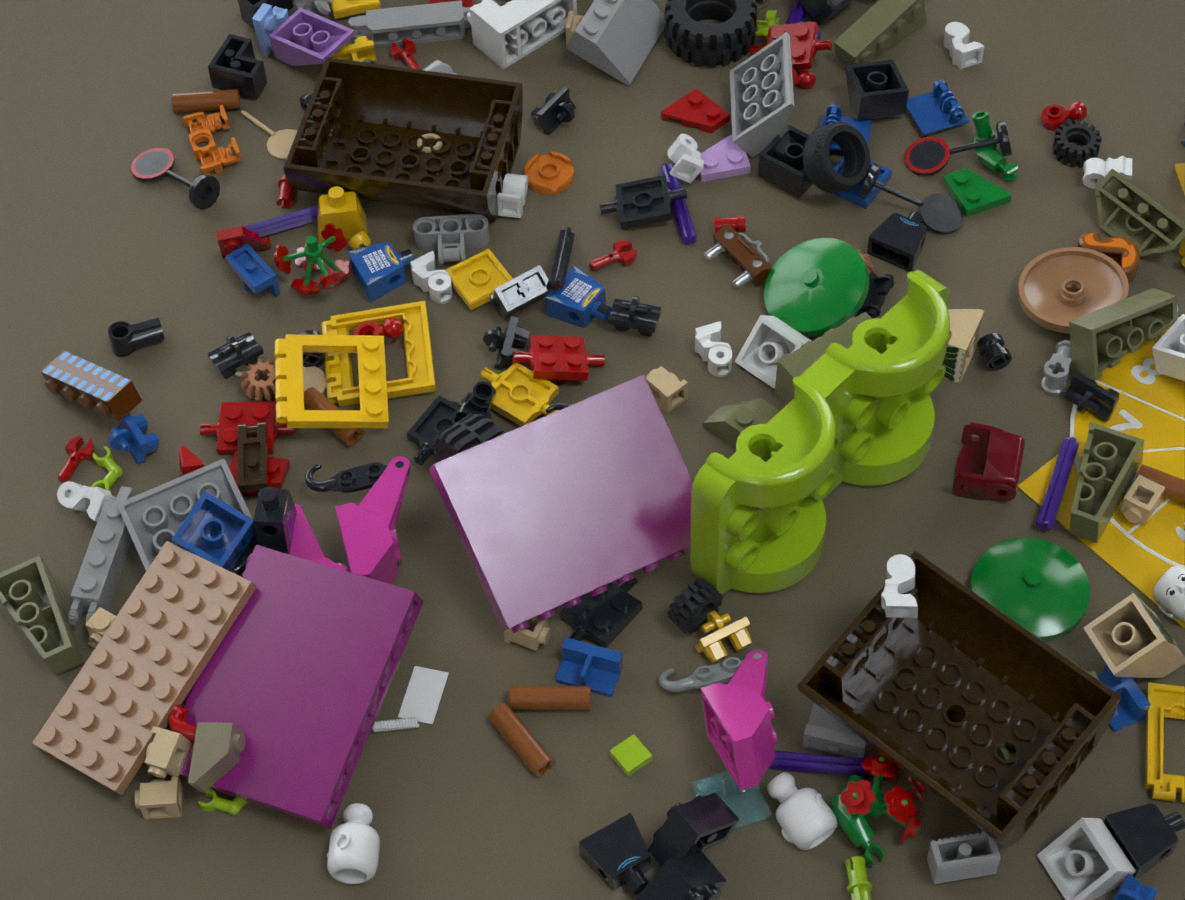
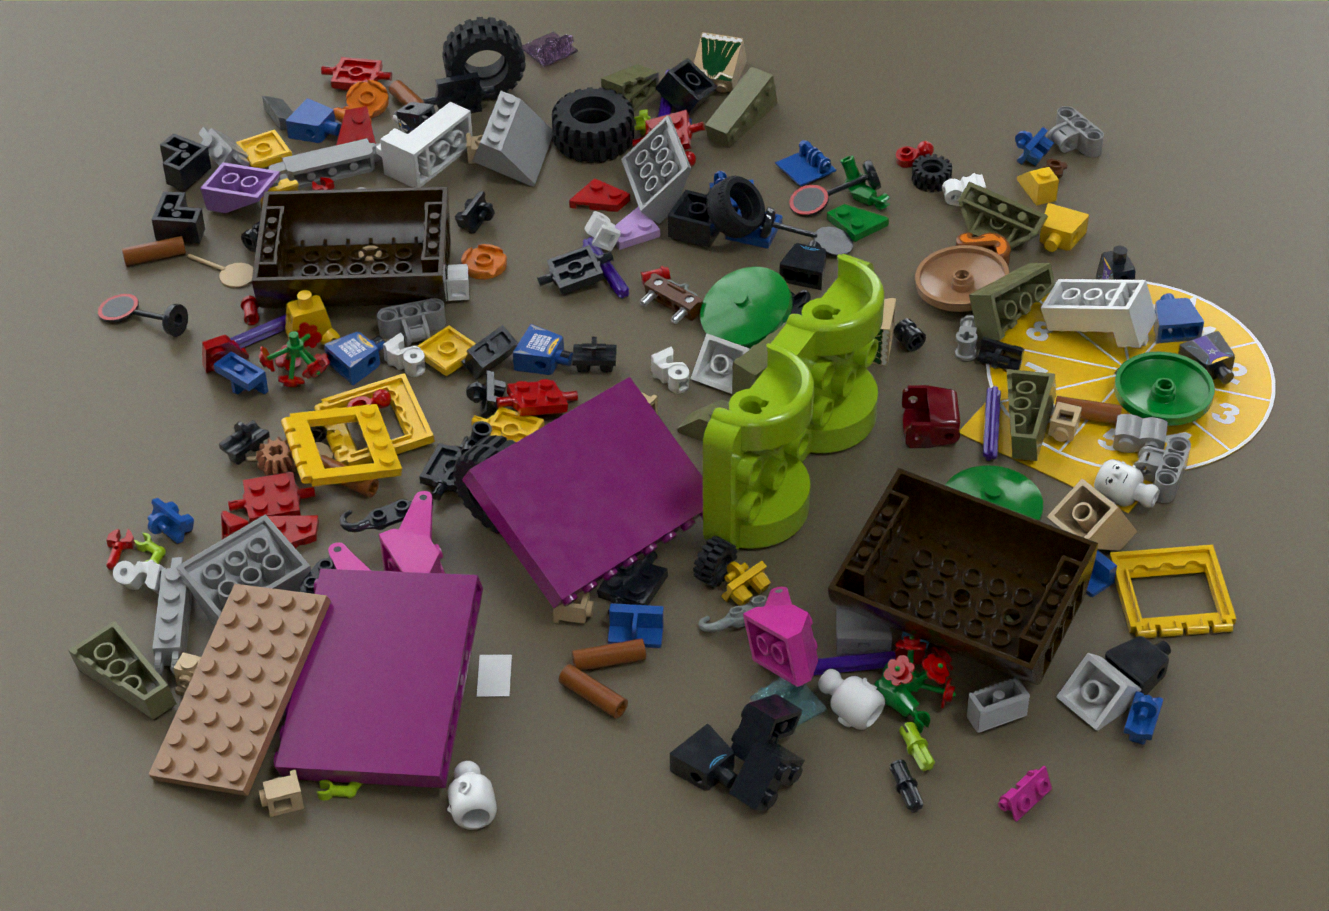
camera: 15 degrees left, 10 degrees down
(91, 386) = (119, 484): reddish brown brick -> none
(126, 337) = (138, 443): black piece -> none
(166, 753) = (282, 749): tan brick -> none
(180, 723) = (292, 727): red arm -> none
(201, 131) = (158, 274): orange piece -> none
(214, 753) = (328, 739): dark tan slope -> none
(215, 532) = (278, 565): blue brick -> none
(252, 457) = (287, 514): dark brown plate -> none
(265, 22) = (194, 178): light blue hinge -> none
(275, 510) = (326, 540): black torso -> none
(395, 724) = (479, 700): white piece -> none
(561, 259) = (518, 321): black axle -> none
(616, 256) = (566, 311): red bar -> none
(631, 755) = (692, 686): lime tile -> none
(876, 89) = (752, 155): black slope -> none
(899, 581) = (895, 502): white leg -> none
(962, 53) = (808, 112): white leg -> none

